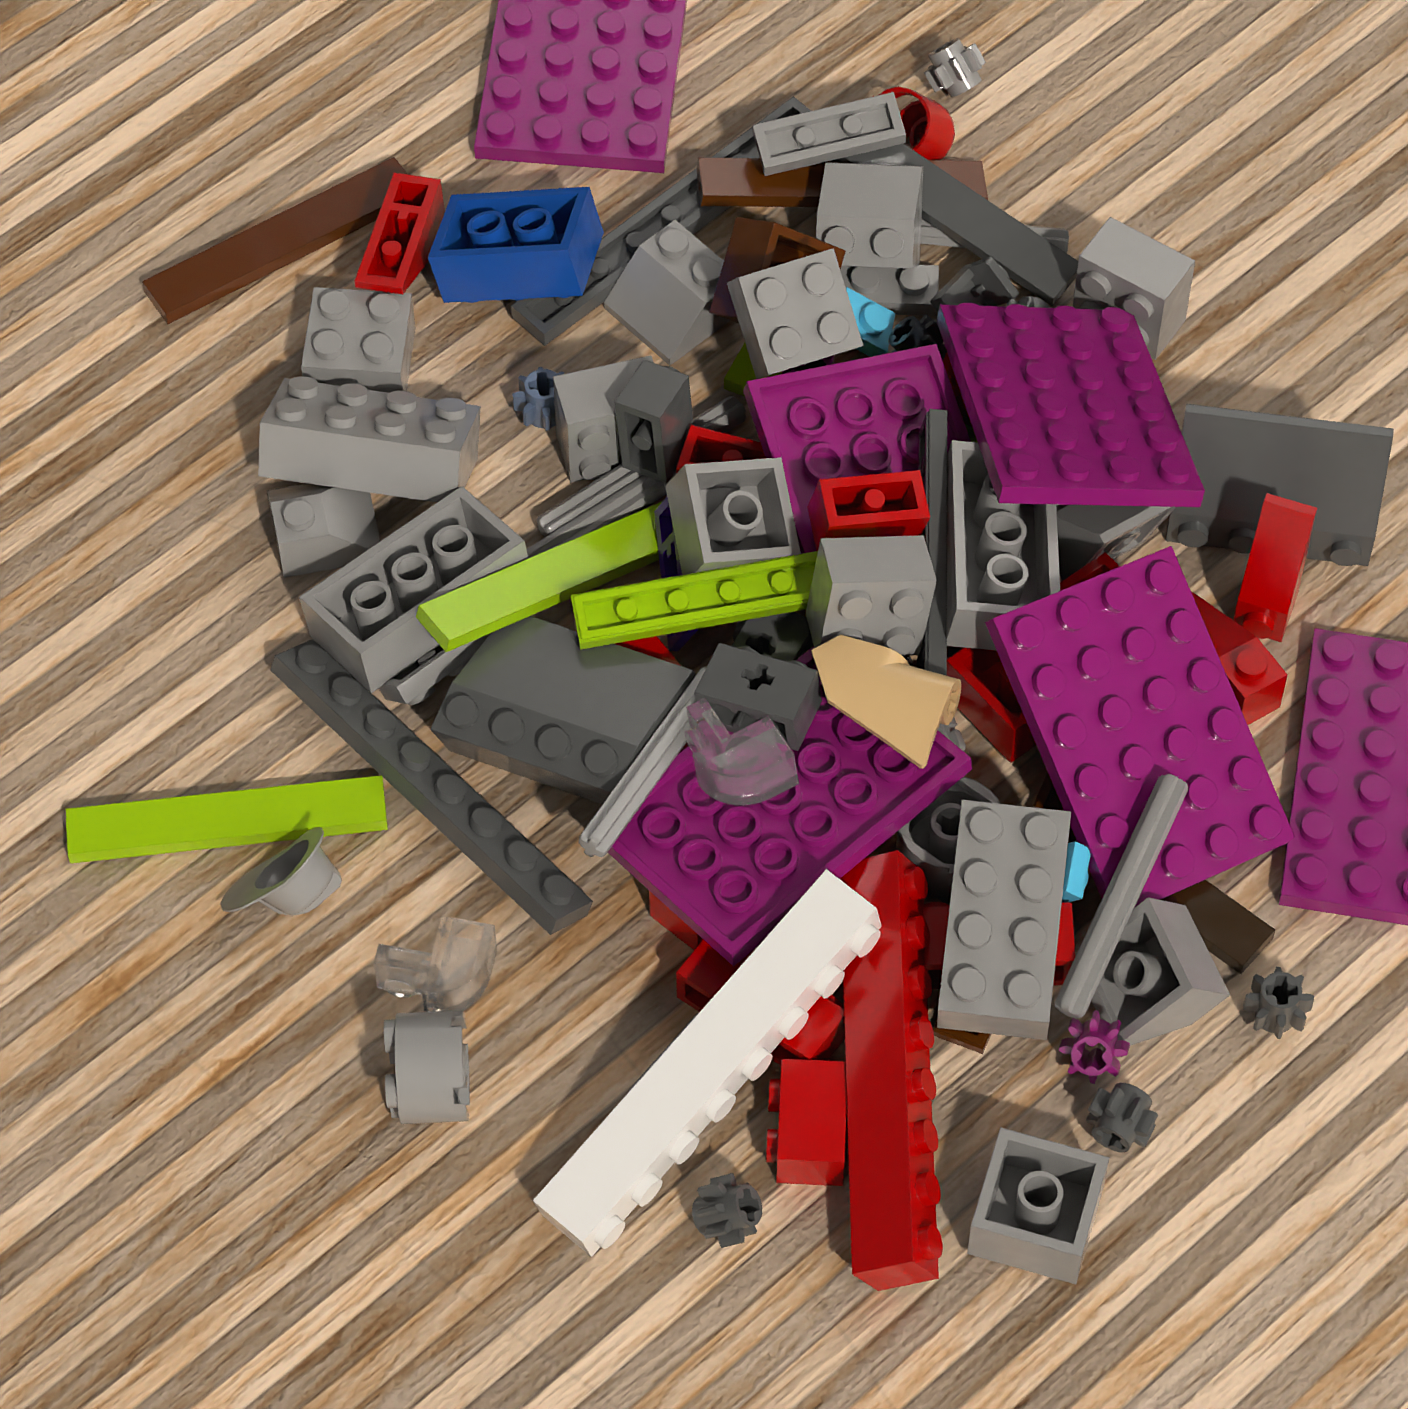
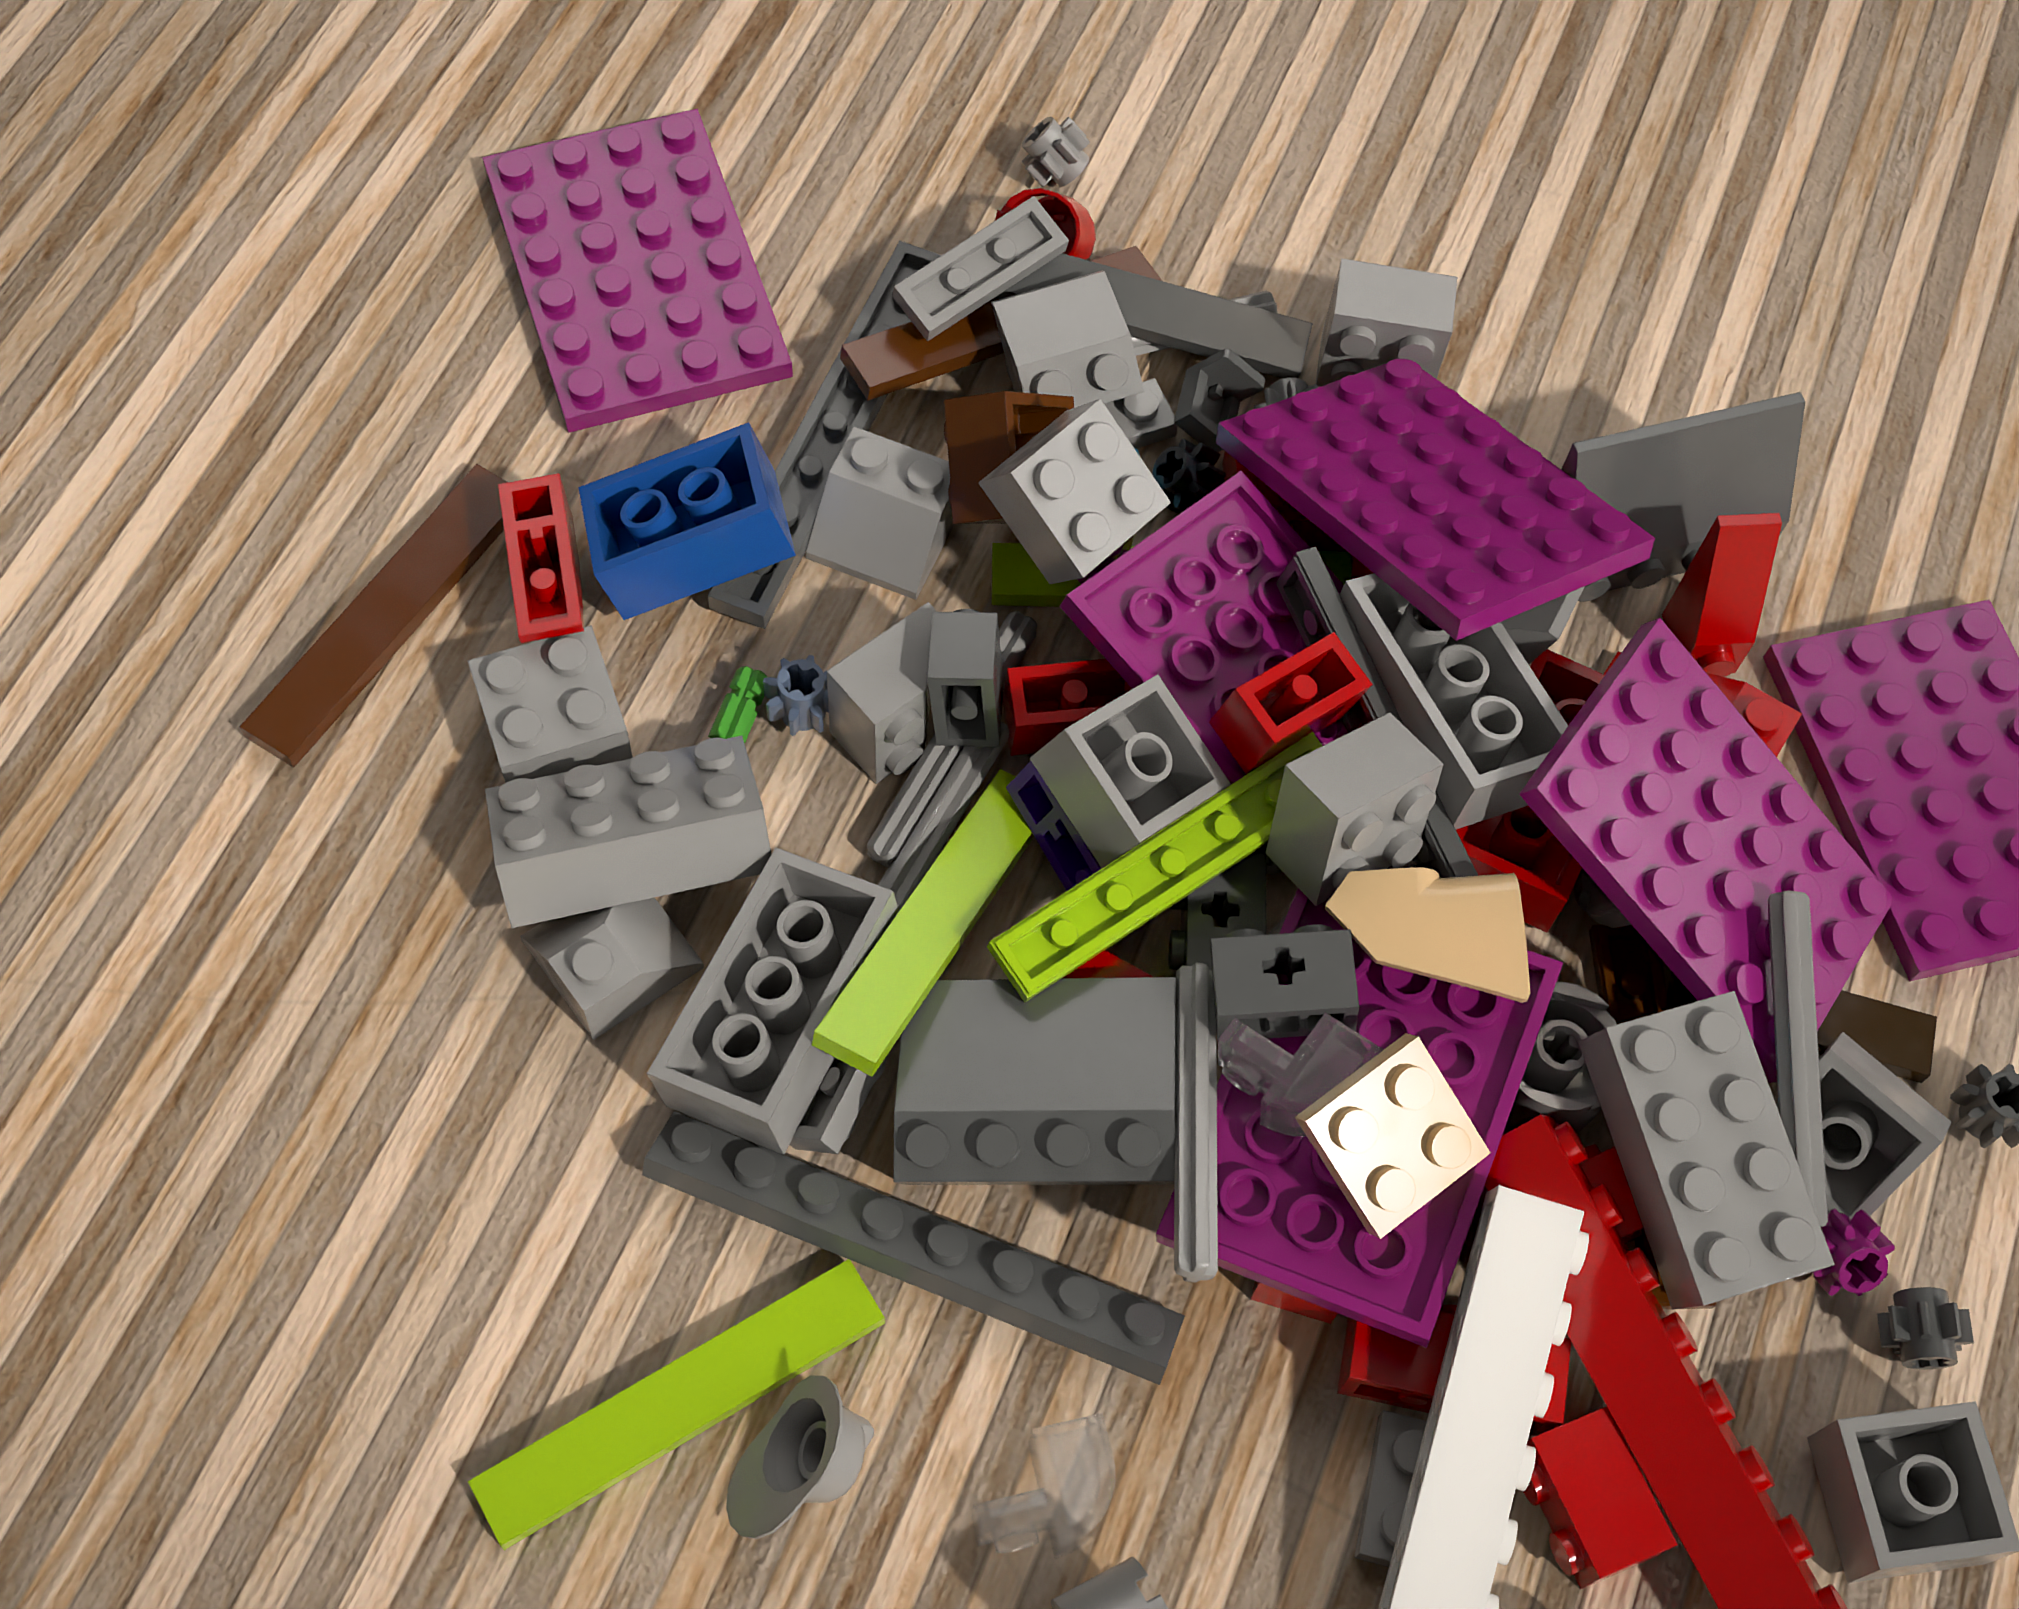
camera: 30 degrees left, 5 degrees up
(495, 394) = (738, 707): none -> bright green axle
(771, 811) = (1393, 1135): none -> plate

